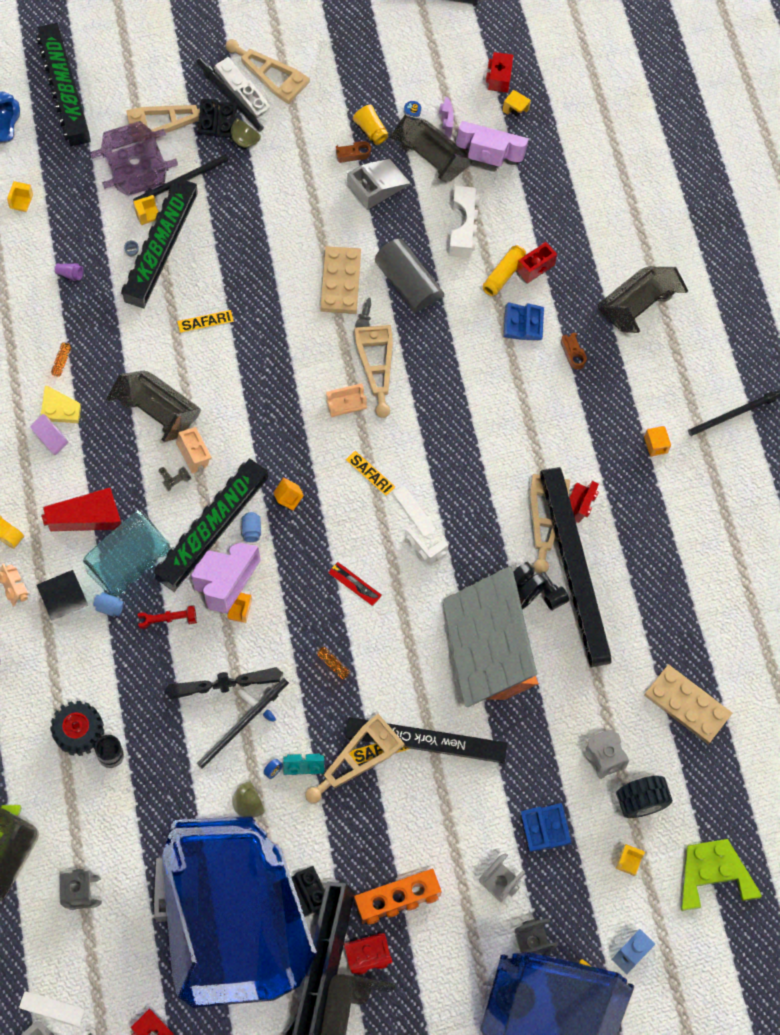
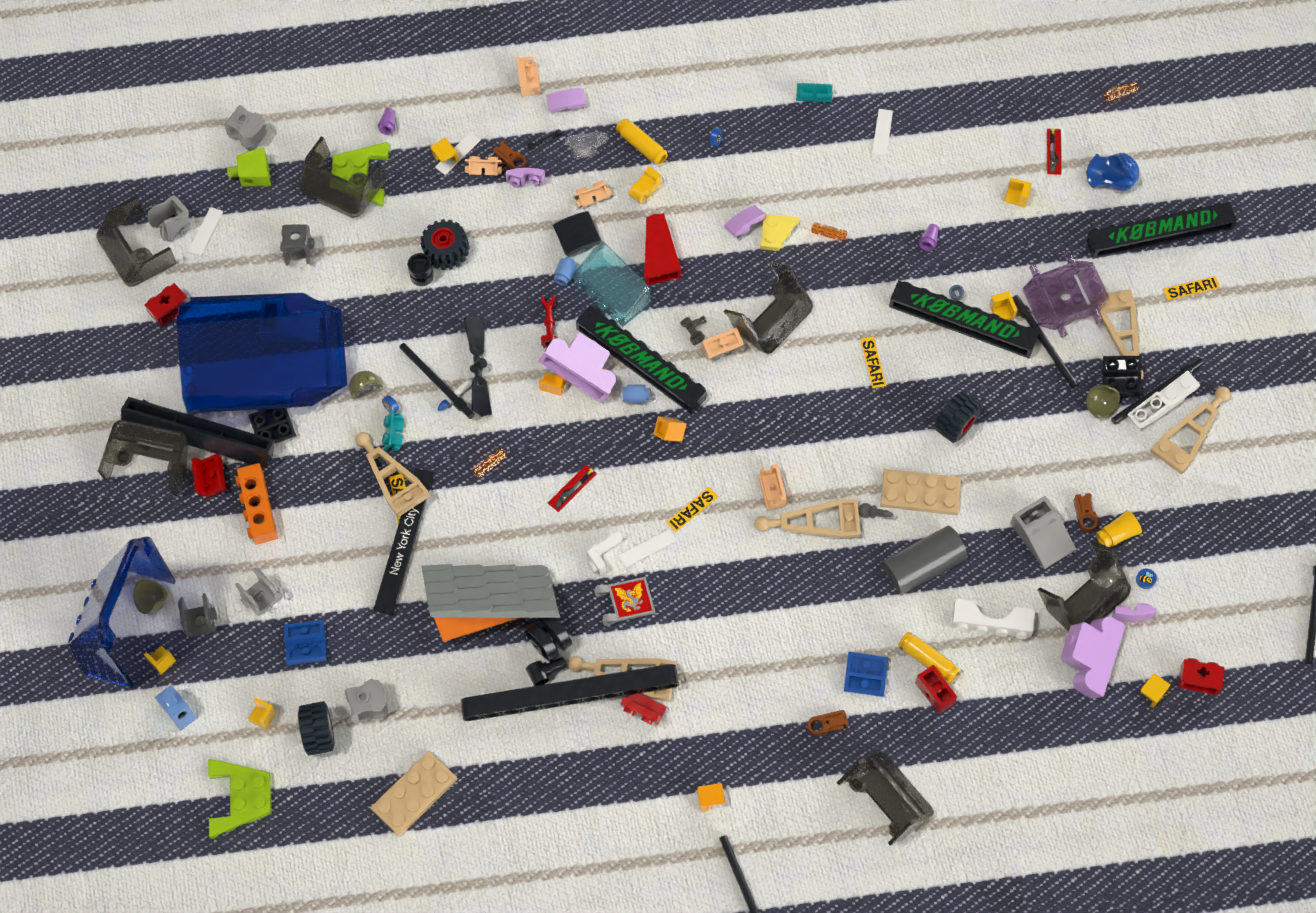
camera: 100 degrees right, 0 degrees up
(122, 66) = (1191, 288): none -> sticker
(270, 241) = (958, 416): none -> black wheel
(471, 522) = (629, 600): none -> flag

